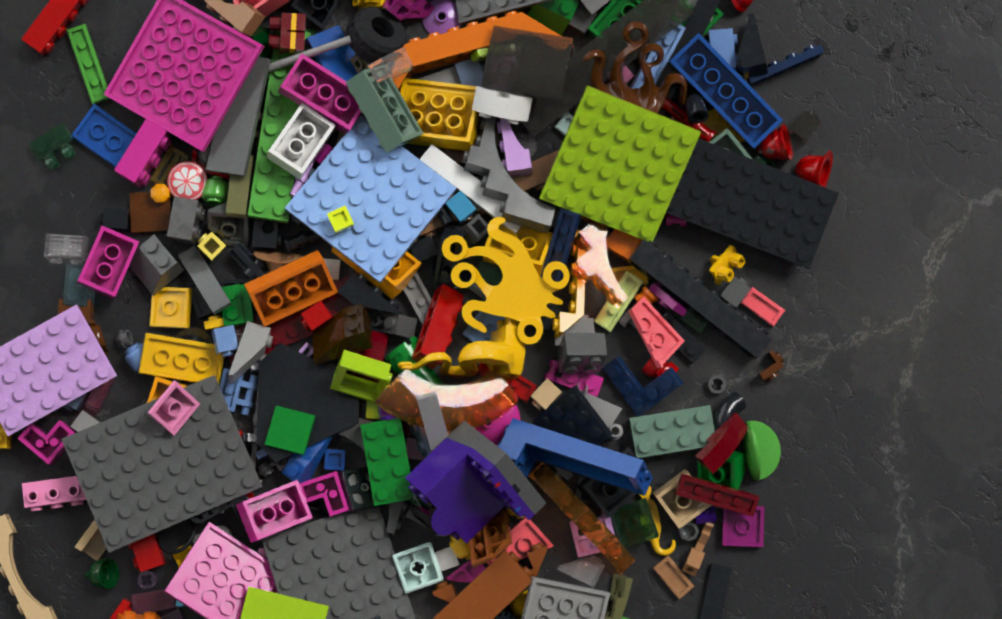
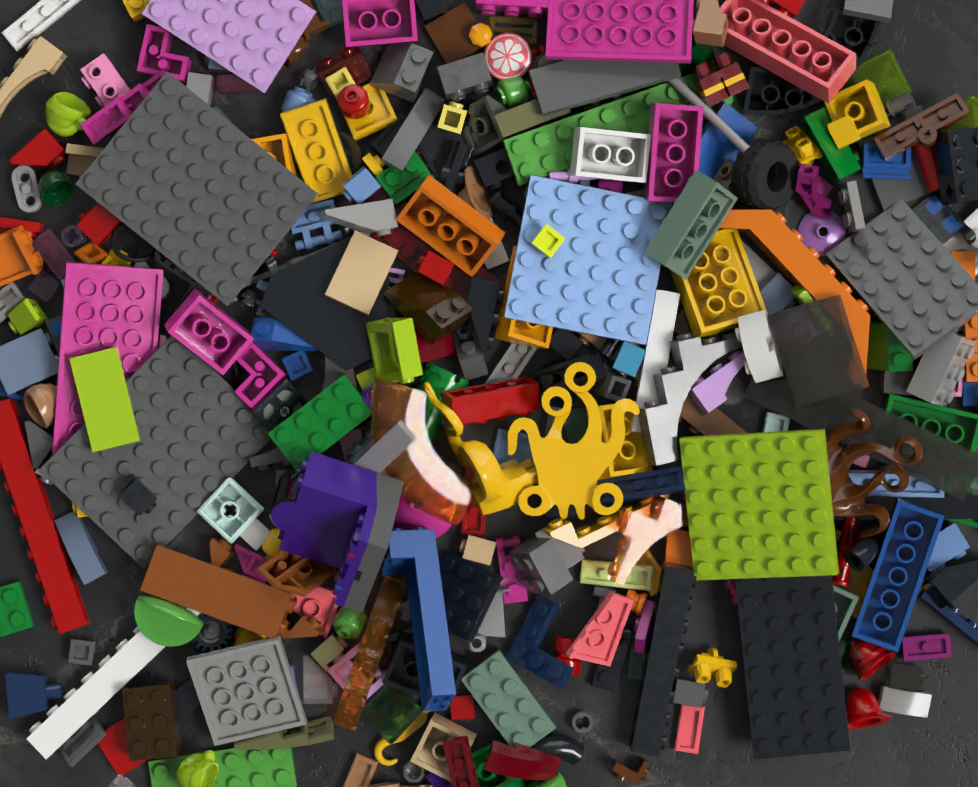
camera: 55 degrees right, 5 degrees up
(52, 536) = (66, 113): none -> lime piece
(71, 570) = (41, 152): none -> red slope
(72, 494) = (118, 111): none -> dark pink slope
(93, 596) = (27, 189): none -> light grey plate
(132, 309) = (351, 59): none -> clear red bracket
(139, 315) = (339, 80): none -> light yellow slope
(159, 312) = (354, 101): none -> red head
(167, 572) = (91, 253): none -> orange slope
(173, 408) = (259, 172): bright pink slope -> none
(290, 430) = (301, 304): green tile -> none
(291, 373) = (361, 273): none -> tan tile
(391, 66) = (738, 208): clear slope -> none
(549, 520) = (349, 622): none -> bright green head
(564, 547) = (329, 651): none -> olive brick
(659, 469) = (462, 707): none -> red tile
(791, 99) = (926, 647): none -> magenta plate
(824, 135) = (904, 701): none -> light grey slope

